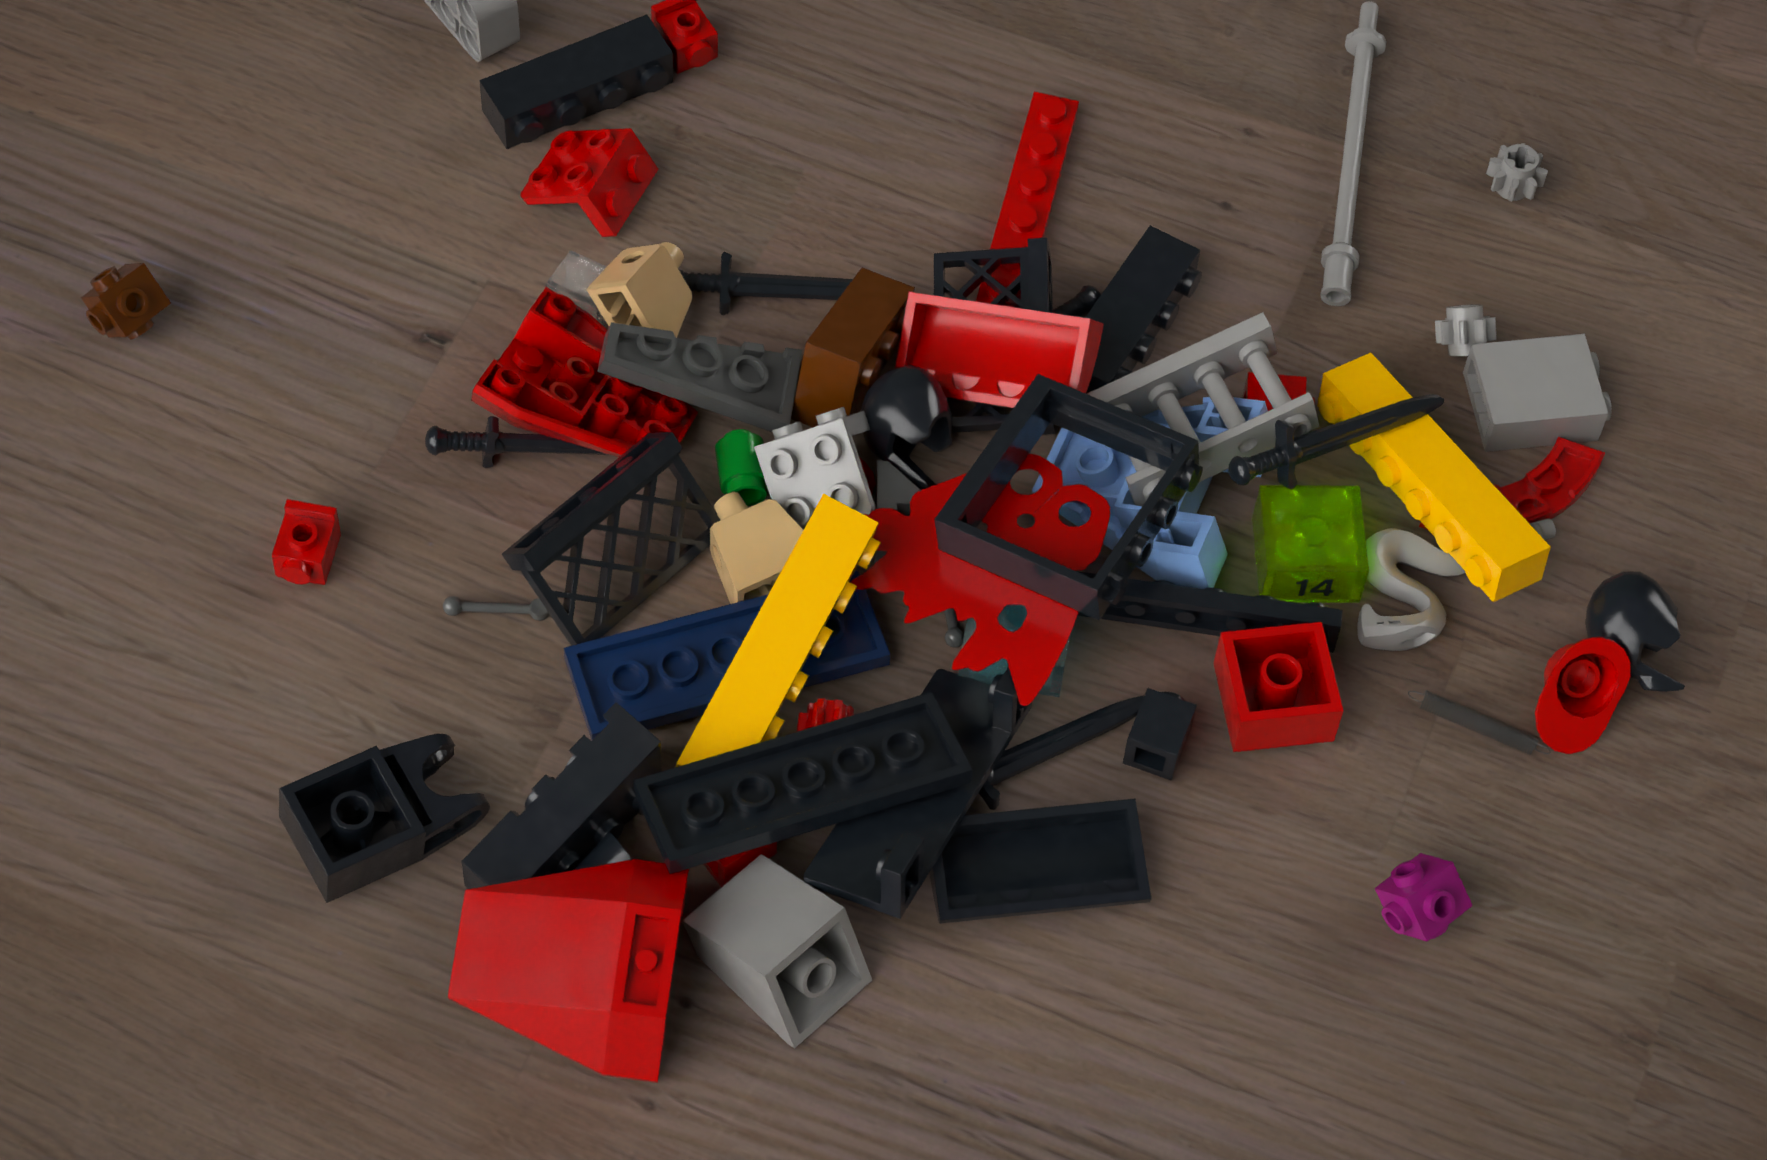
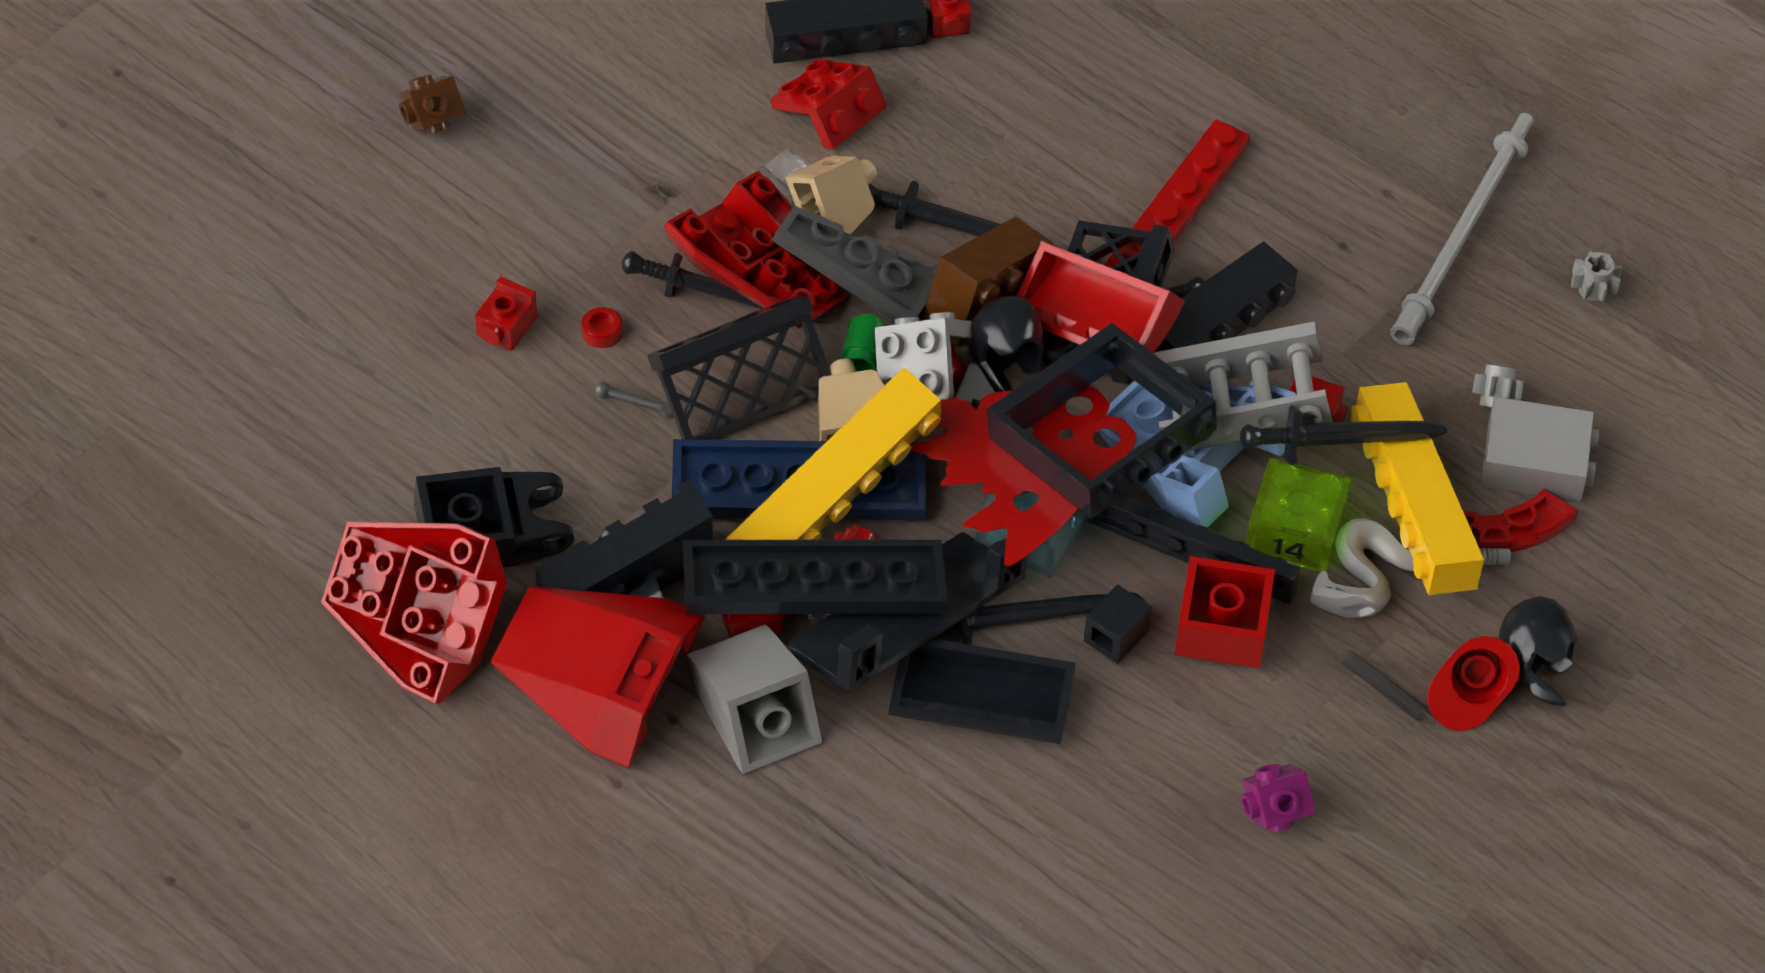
camera: 20 degrees right, 5 degrees down
(331, 945) = (418, 599): none -> red wedge
(424, 527) = (602, 327): none -> red tile

